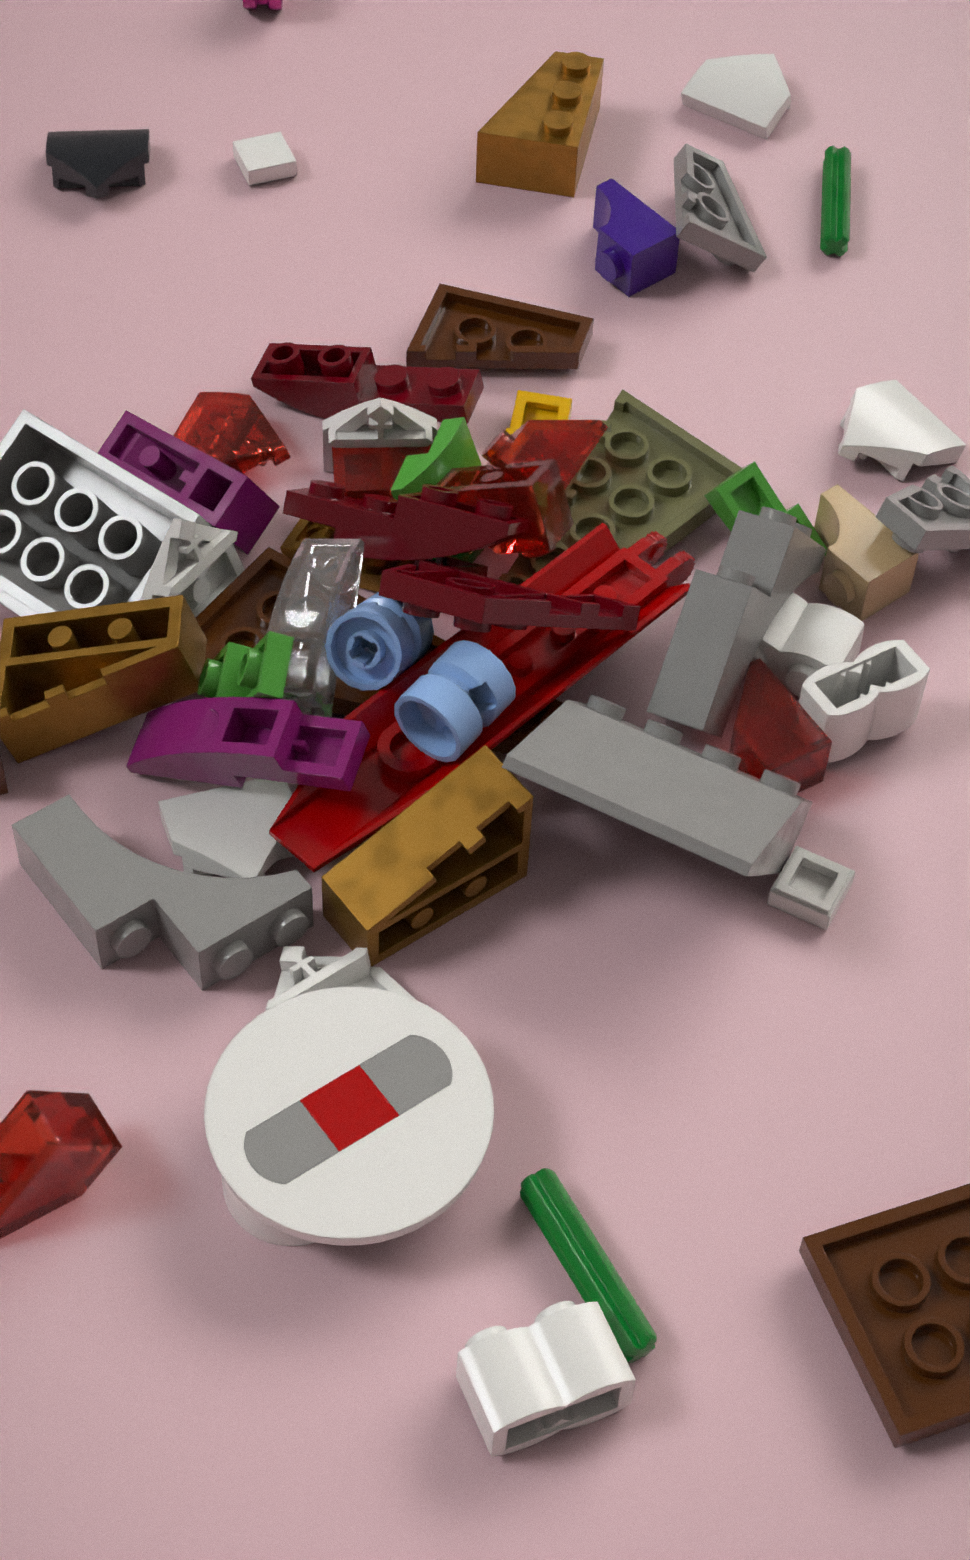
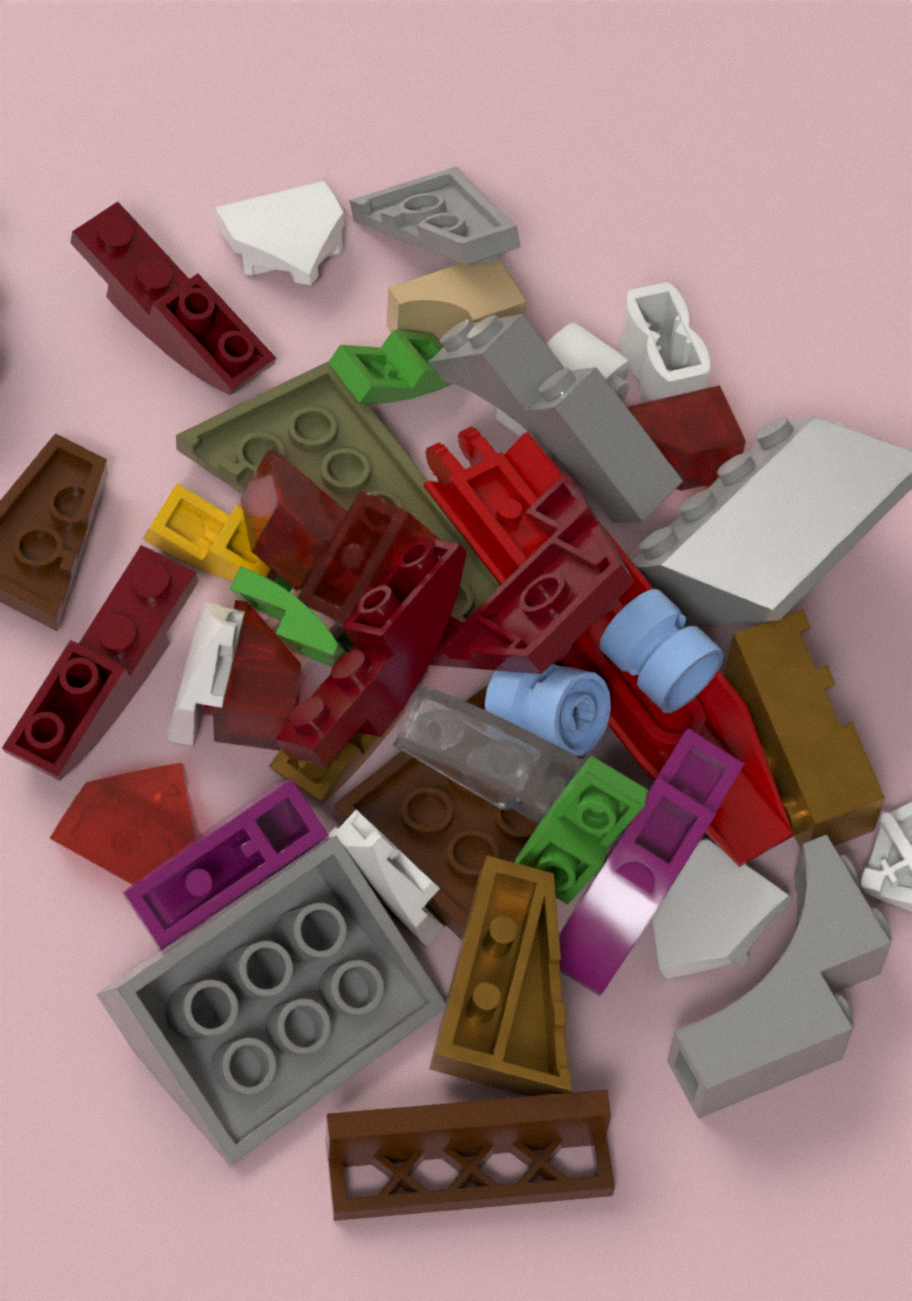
camera: 80 degrees left, 5 degrees up
(769, 365) = (167, 306): none -> dark red slope

